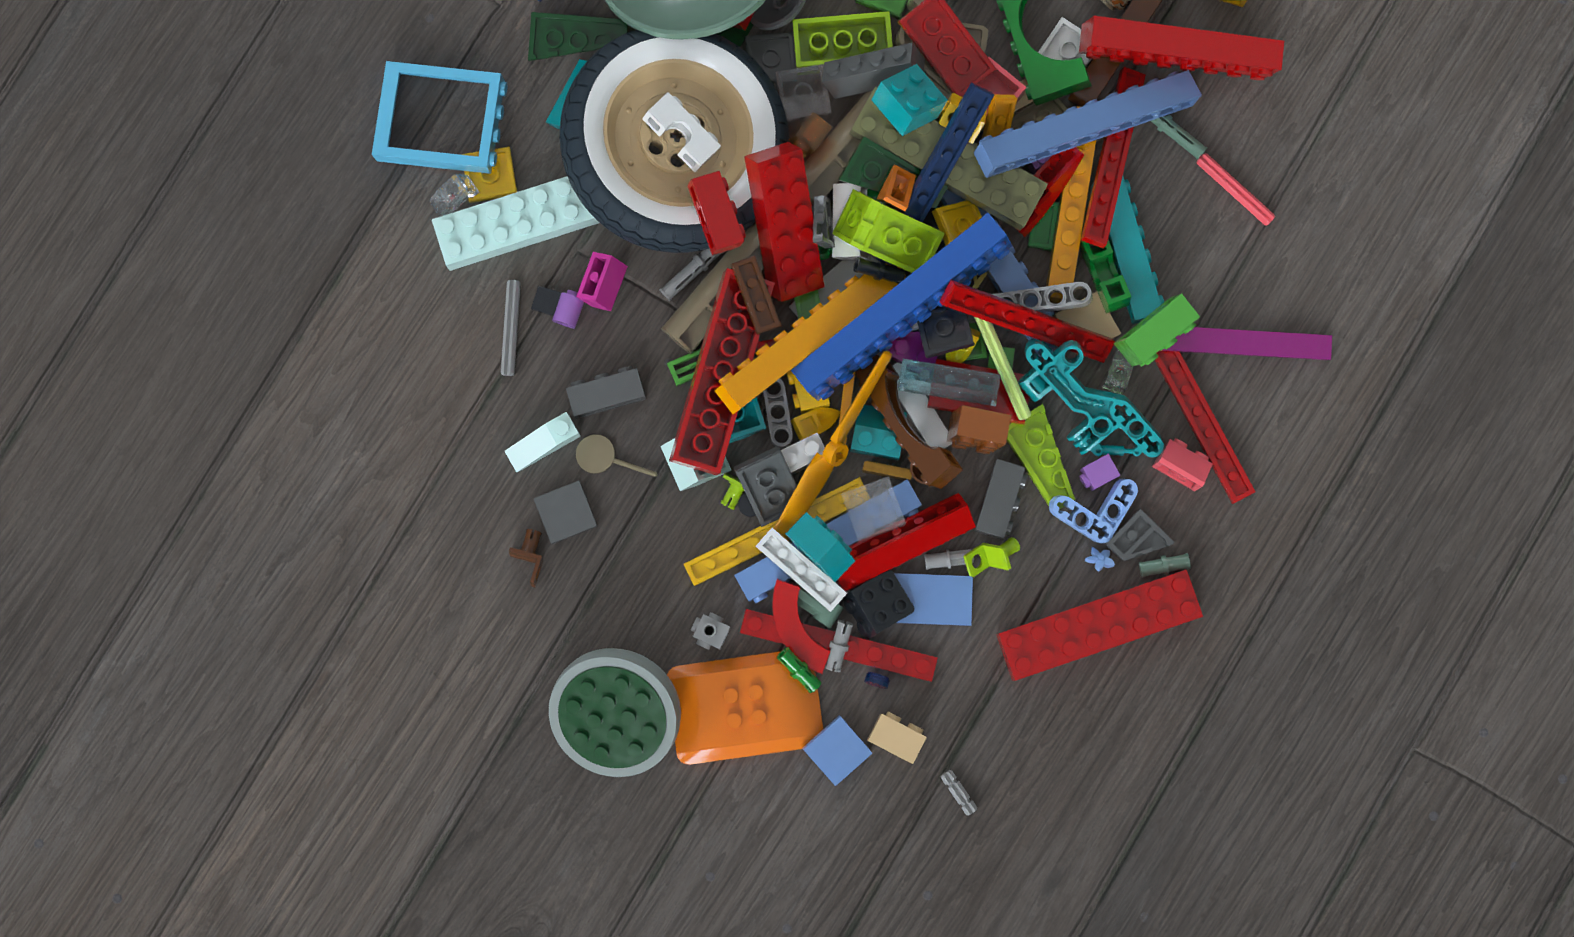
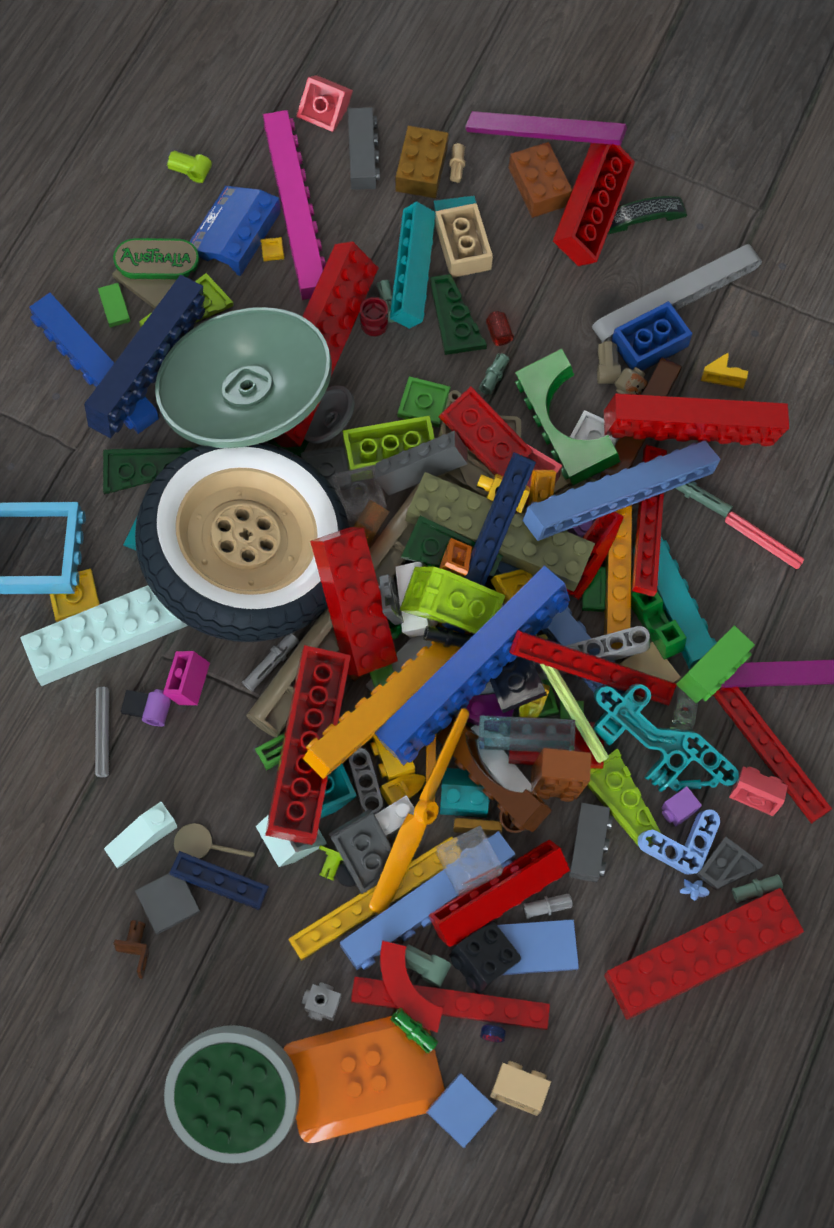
camera: 10 degrees left, 15 degrees down
(453, 194) = (39, 613): clear leg -> none
(605, 392) = (198, 781): dark grey brick -> none
(618, 497) = (219, 880): none -> dark blue tile
(670, 114) = (237, 512): white arch -> none
(716, 212) = (289, 594): red brick -> none
(755, 295) = (333, 667): reddish brown tile -> none
(801, 569) = (405, 928): white plate -> none
(821, 546) = (422, 900): teal brick -> none
(839, 645) = (451, 1001): light grey pin -> none
(909, 99) = (458, 477): teal brick -> none
(958, 792) = (589, 1140): light grey axle -> none
(991, 556) = (589, 897): lime bracket -> none

